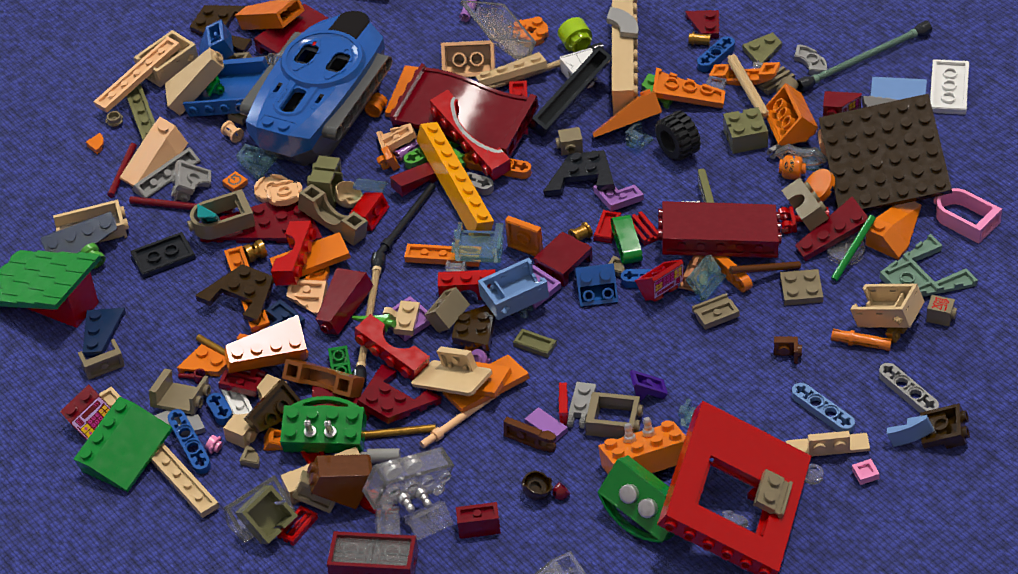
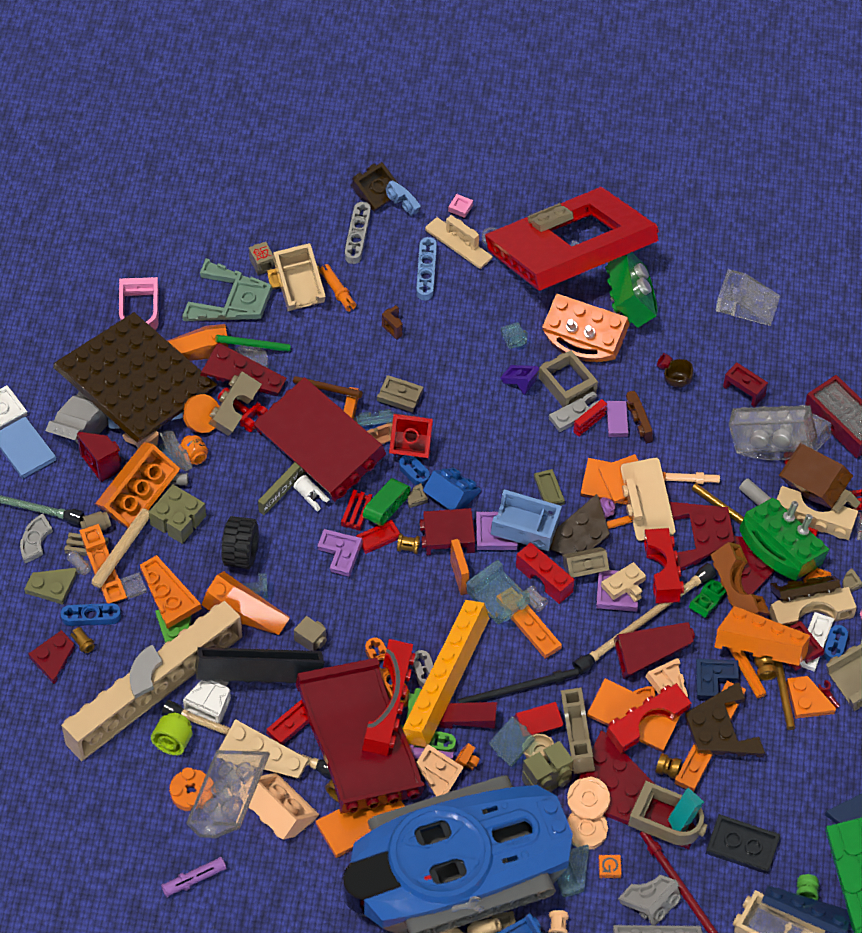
camera: 140 degrees left, 10 degrees up
(385, 318) = (648, 588): bright green piece -> none
(582, 167) = (332, 600): black wing -> none
(801, 287) = (317, 361): dark tan plate -> none

